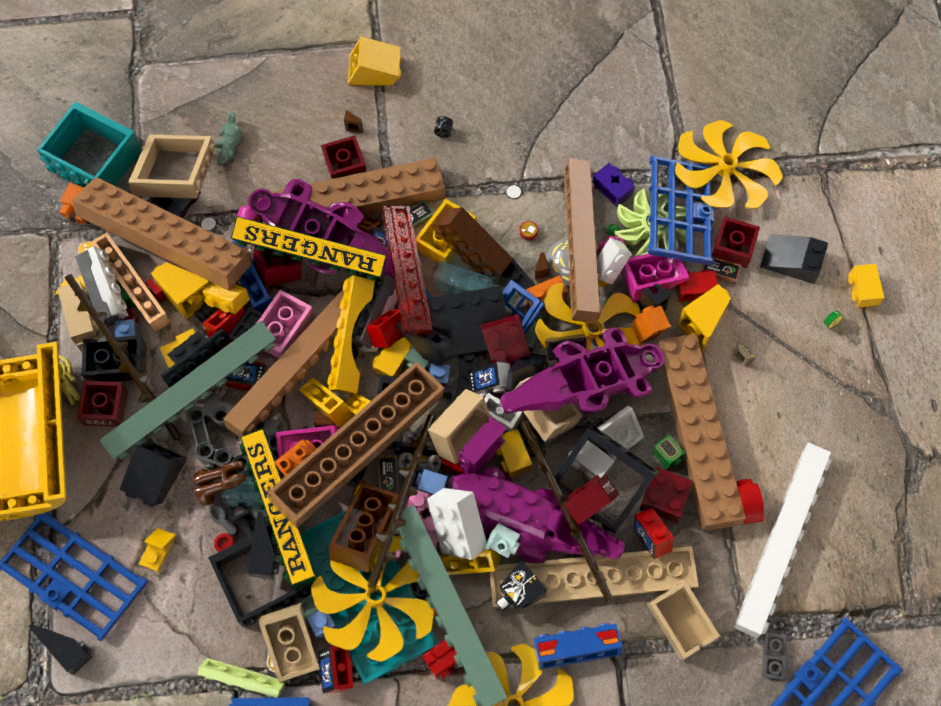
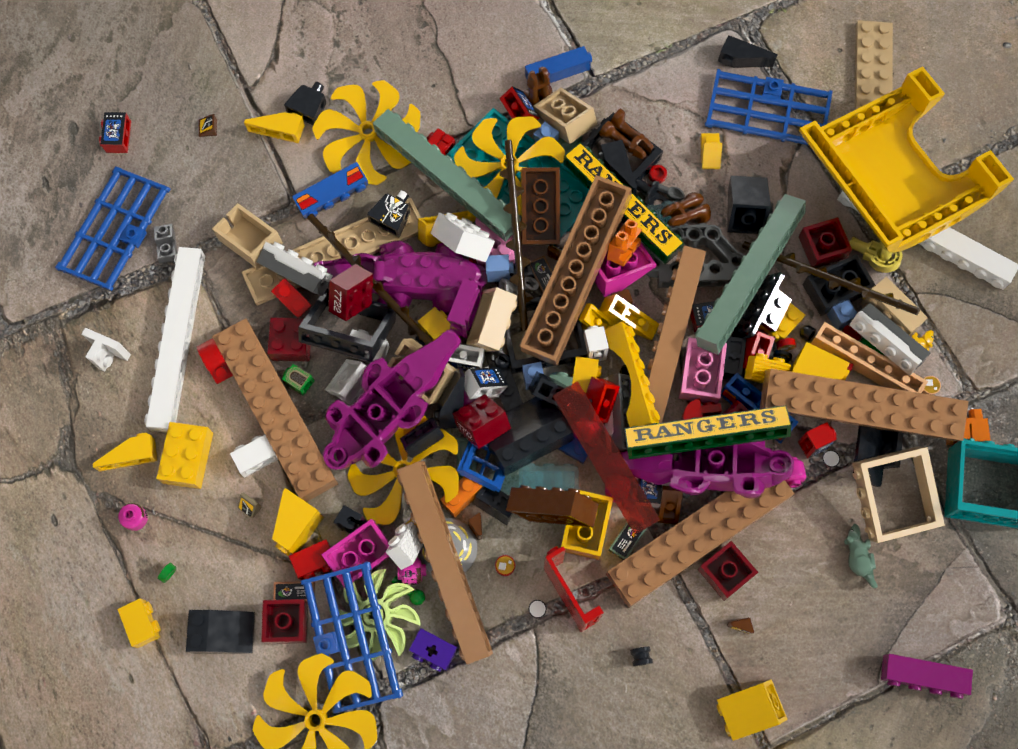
camera: 160 degrees right, 5 degrees up
(167, 331) = (807, 332): none -> black hinge
(193, 324) = (786, 344): none -> red tile
(215, 224) = (817, 440): none -> red brick
(228, 44) = (926, 675): none -> magenta brick
(241, 677) = (593, 80): yellowish green plate -> none
(253, 595) = (618, 122): none -> reddish brown piece
(305, 681) = (538, 85): none -> reddish brown piece
(310, 292) = (695, 409): none -> red brick
(368, 379) = (596, 343): none -> white brick
(480, 160) = (583, 621): none -> red panel
(503, 541) = (417, 239): light aqua brick -> none
(642, 554) = (295, 269): none -> piece
(650, 324) = (347, 492): orange brick -> none
(731, 394) = (253, 456): none -> white brick
(796, 416) = (185, 455): none -> yellow brick
(847, 437) = (131, 452): none -> yellow slope
(857, 375) = (133, 517): none -> dark pink head
(859, 548) = (103, 349): none -> white bracket

